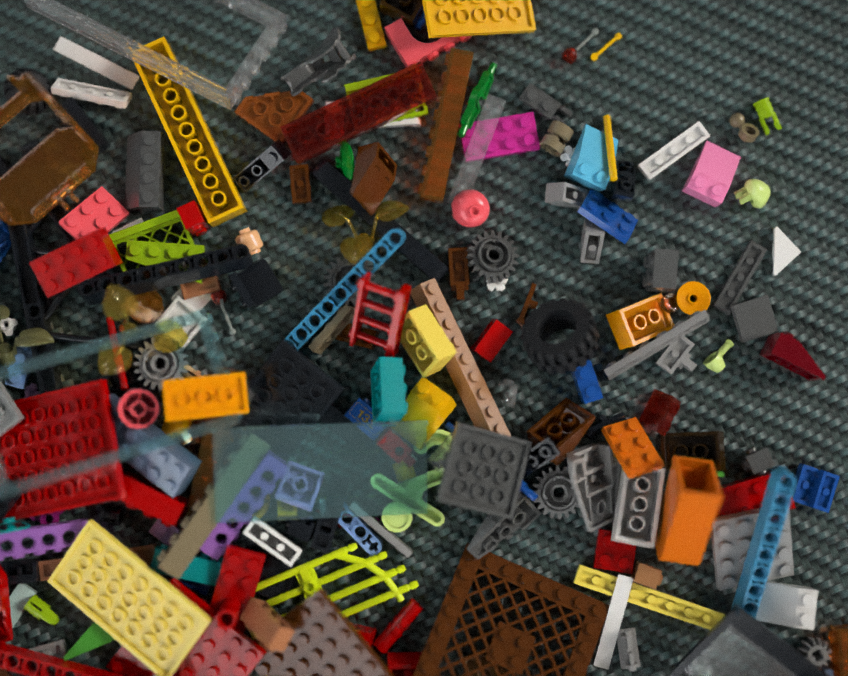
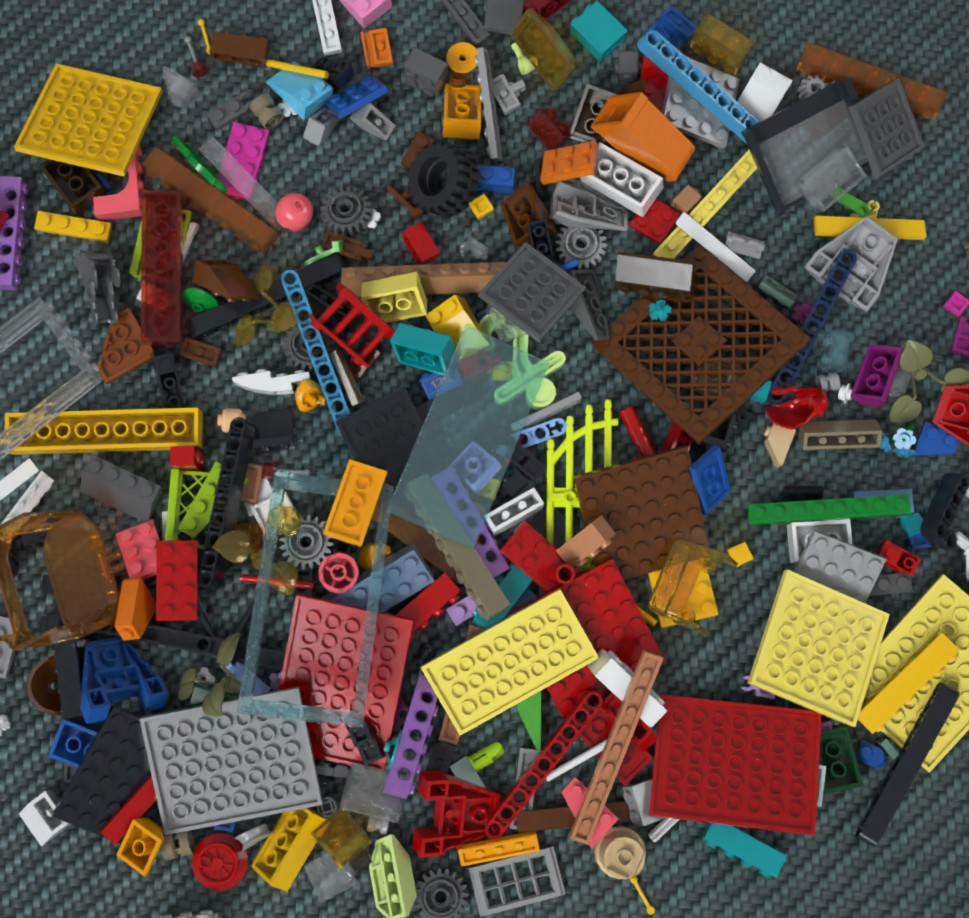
camera: 65 degrees left, 5 degrees down
(32, 237) = (134, 609): none -> orange slope
(296, 256) = (264, 383): none -> white slope
(302, 302) = (309, 395): none -> light orange piece
(392, 276) = (320, 300): none -> black brick
(440, 253) = (337, 247): none -> bright green piece
(525, 596) = (659, 310): none -> teal plant
(542, 46) = (179, 88): none -> clear slope
(554, 382) = (481, 206): none -> yellow plate
(554, 579) = (655, 276): none -> slope
(588, 296) = (418, 143): none -> reddish brown plate
(607, 84) = (239, 49): none -> reddish brown brick
(666, 212) = (376, 48): none -> orange plate
(735, 374) = (544, 48): none -> clear yellow windscreen
(735, 477) = (634, 87): none -> reddish brown sticker
(780, 416) = (598, 31): none -> teal brick
(819, 544) = (721, 44): none -> clear yellow brick

